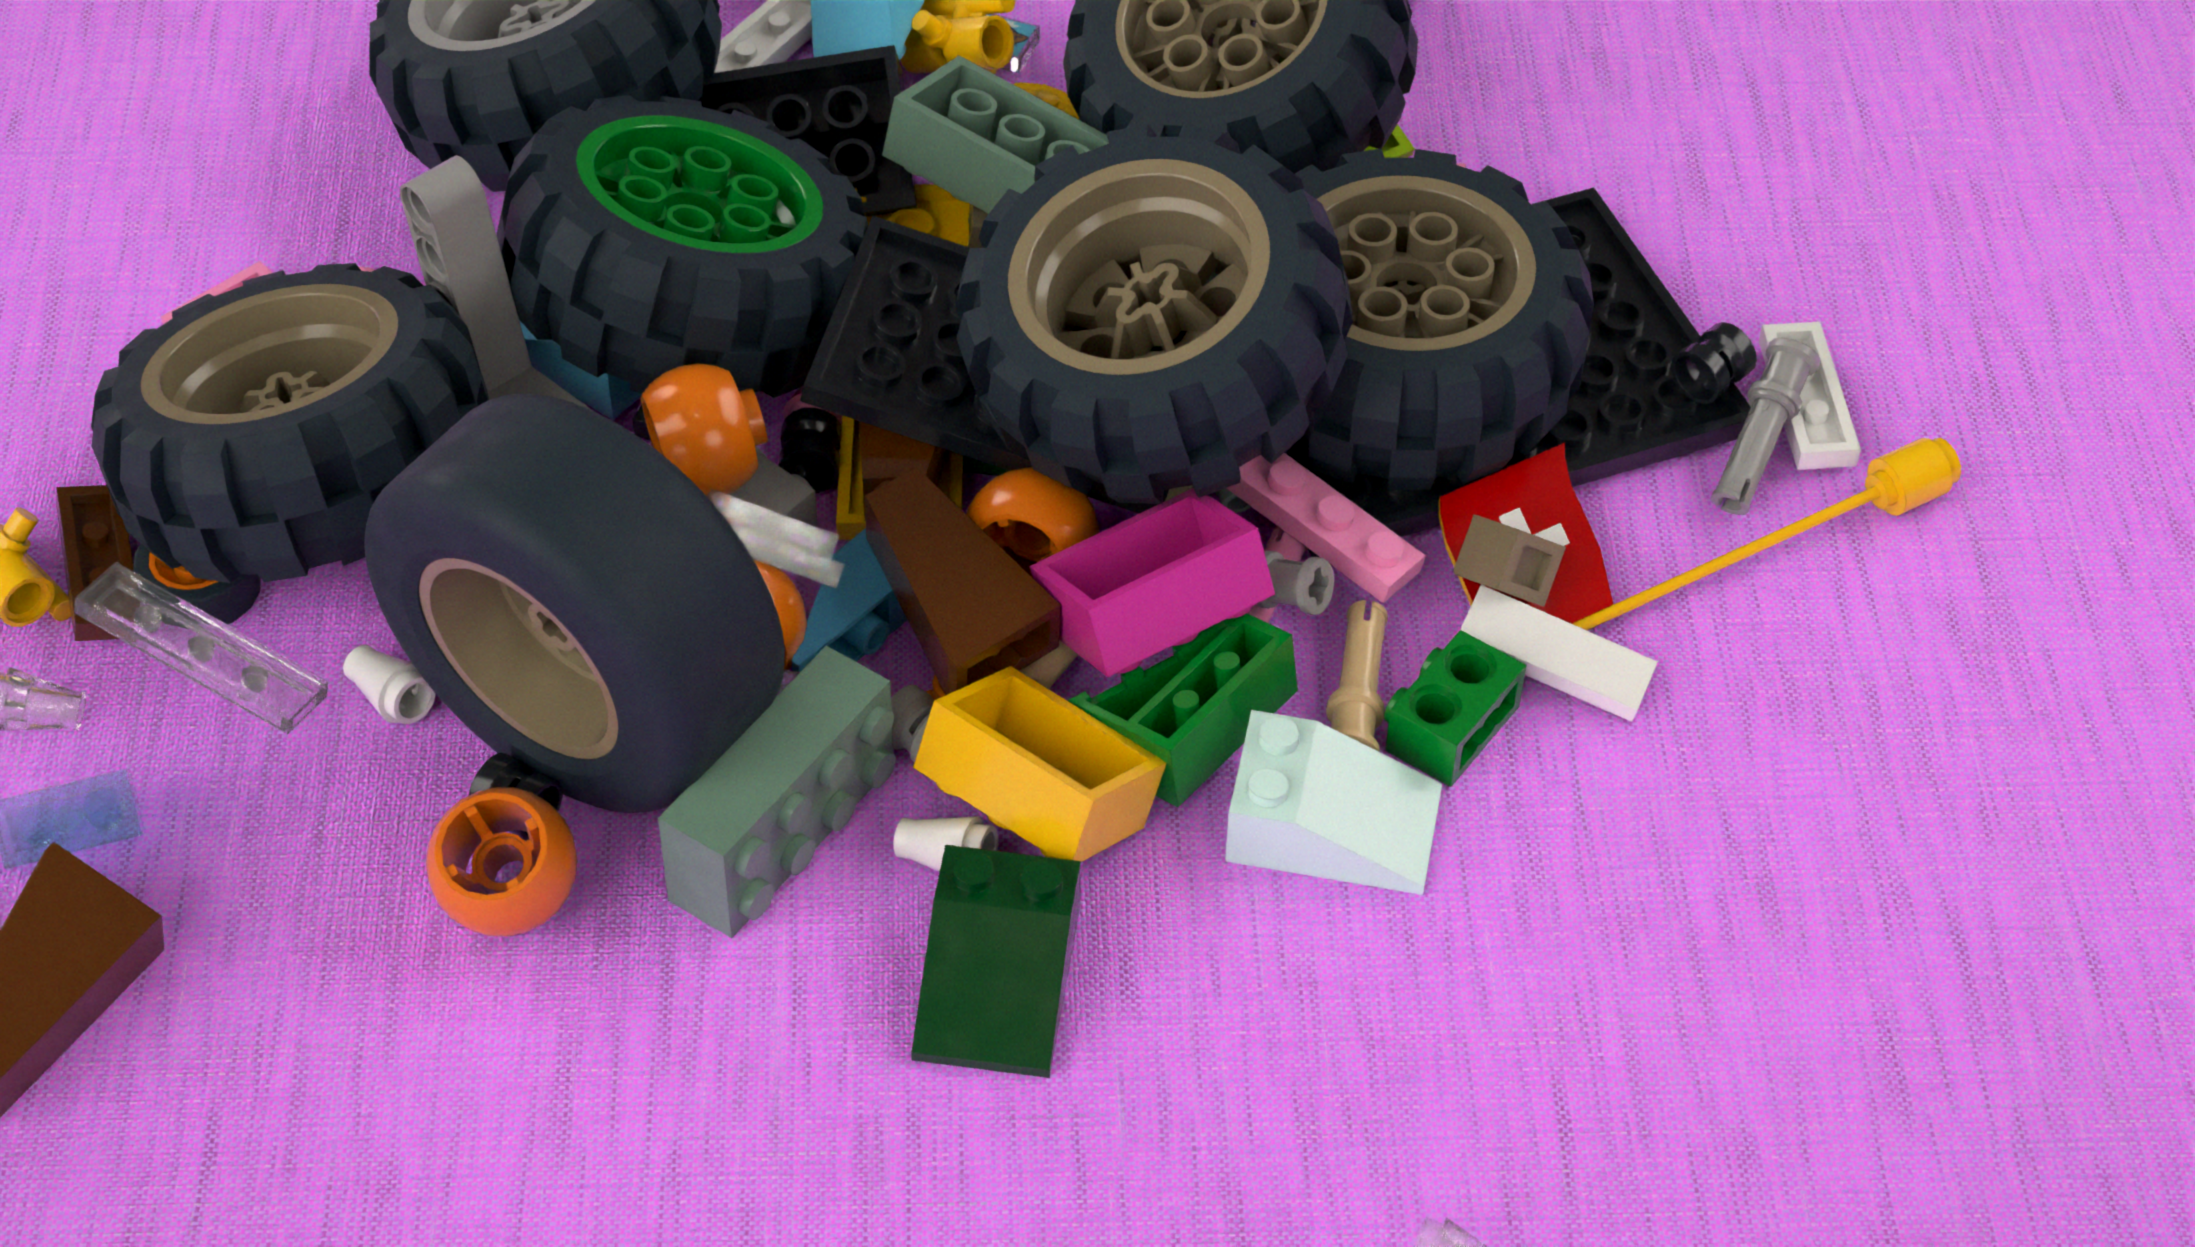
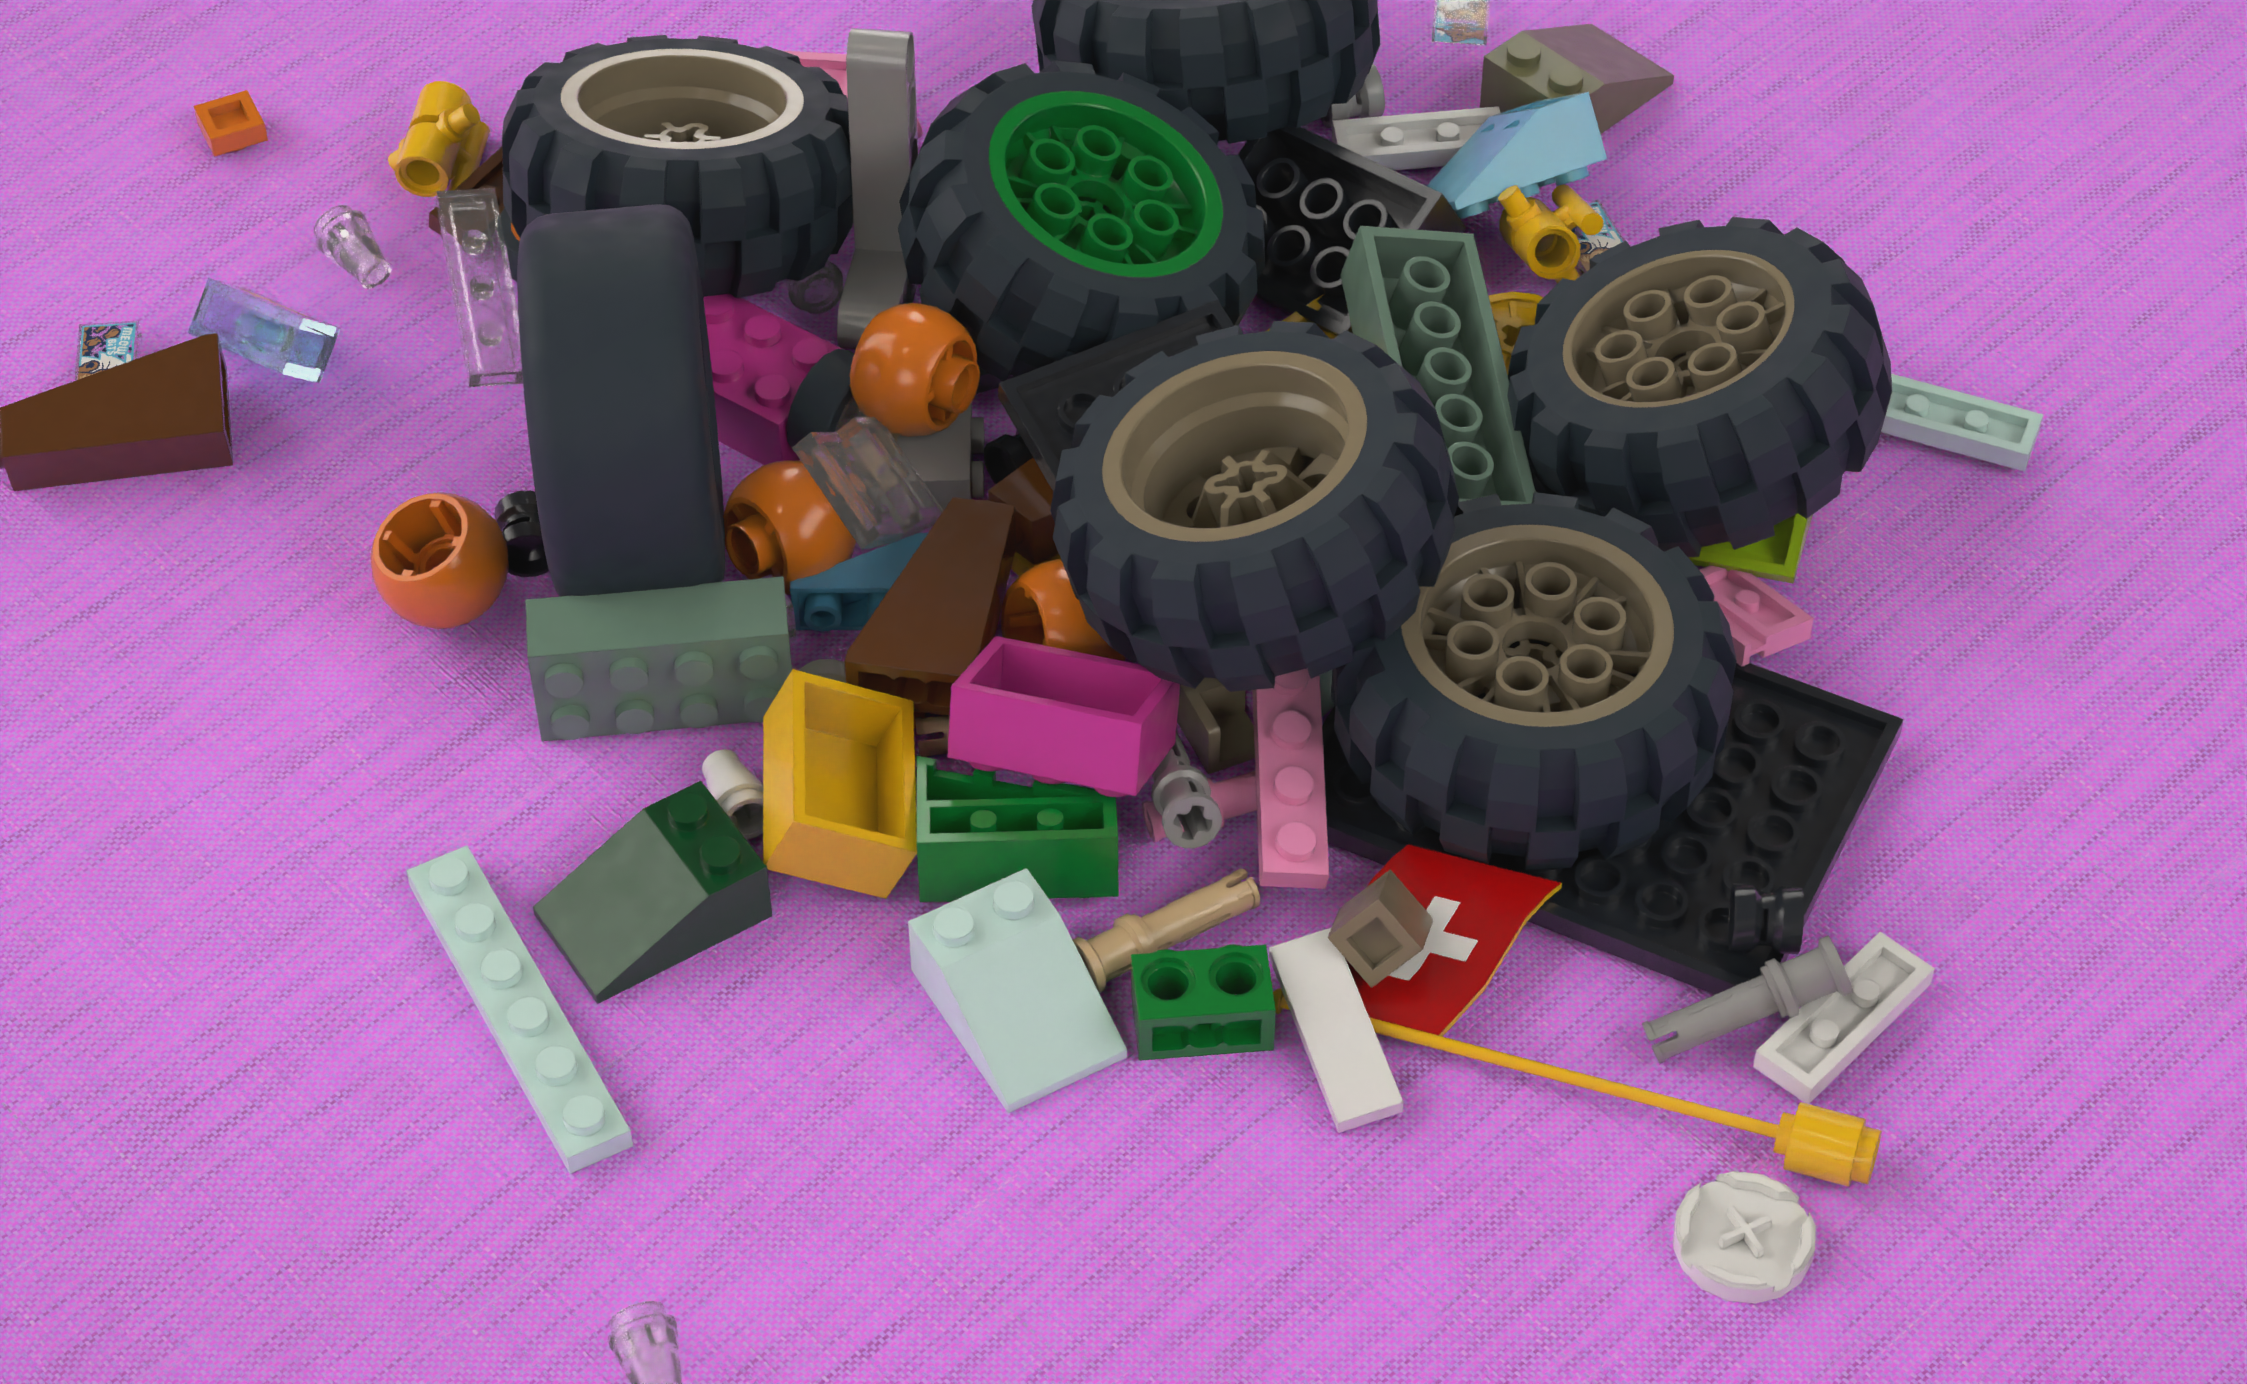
camera: 50 degrees right, 0 degrees up
(1005, 1128) = (520, 1010): none -> light aqua plate
(1934, 574) = (1744, 1237): none -> white tile

